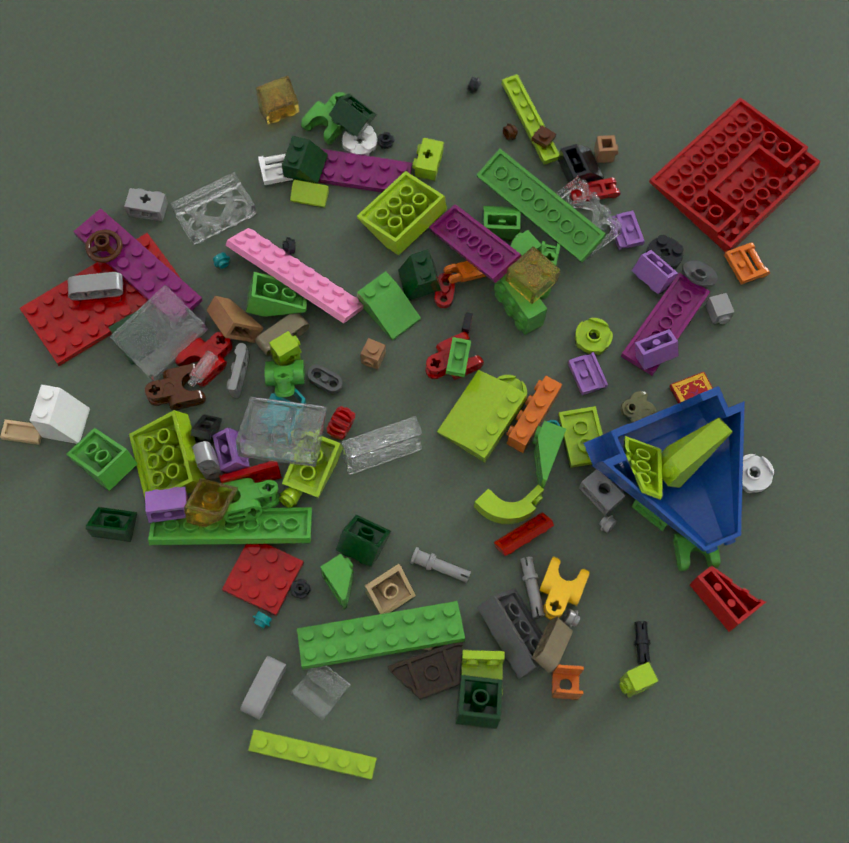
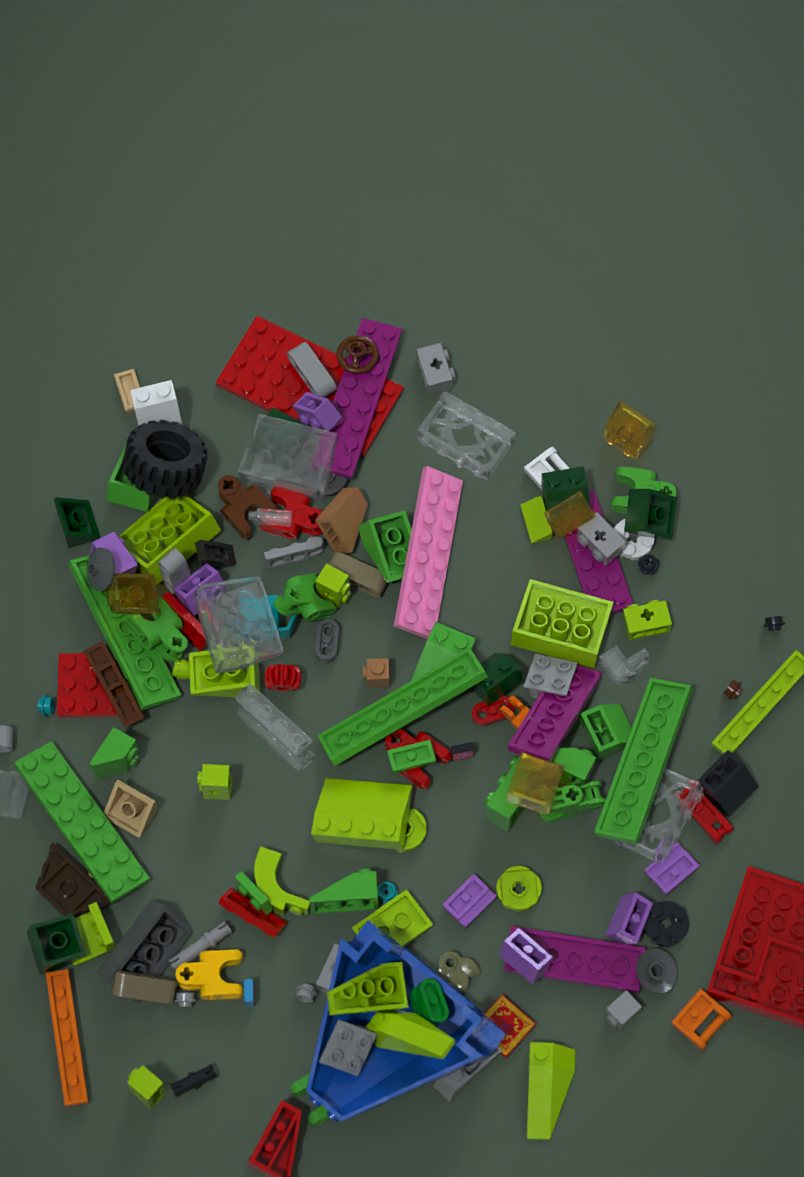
camera: 70 degrees right, 0 degrees up
(104, 424) = (161, 476): none -> black tyre
(135, 293) = (317, 412): none -> medium lavender brick
(176, 510) = (100, 569): none -> dark grey dish
(221, 260) = (409, 474): teal plate -> none
(276, 554) = (113, 684): none -> reddish brown slope
(289, 246) = (461, 530): black plate -> none
(300, 593) = (93, 731): black plate -> none
(324, 163) = (569, 514): none -> clear yellow brick
(353, 155) = (600, 529): none -> light grey brick
(362, 540) = (170, 759): dark green slope -> none
(403, 511) = (215, 781): none -> lime brick
(414, 345) = (402, 706): none -> bright green plate
(430, 562) = (179, 836): light grey pin -> none
(441, 236) = (549, 675): none -> light grey hinge
(457, 191) = (619, 668): none -> clear brick
(516, 523) = (258, 899): none -> bright green plate
(534, 413) = (393, 865): orange brick -> none
(543, 137) = (740, 727): reddish brown plate -> none
(563, 729) = (66, 1038): none -> orange plate
(570, 673) = (104, 1019): orange piece -> none
(590, 565) = (249, 993): none -> dark azure tile
(605, 149) = (762, 801): medium nougat brick -> none
(662, 432) = (429, 1002): none -> green brick
(683, 502) = (348, 1047): none -> light grey hinge
(751, 385) = (548, 1083): none -> lime wedge
(762, 479) = (426, 1126): white plate -> none

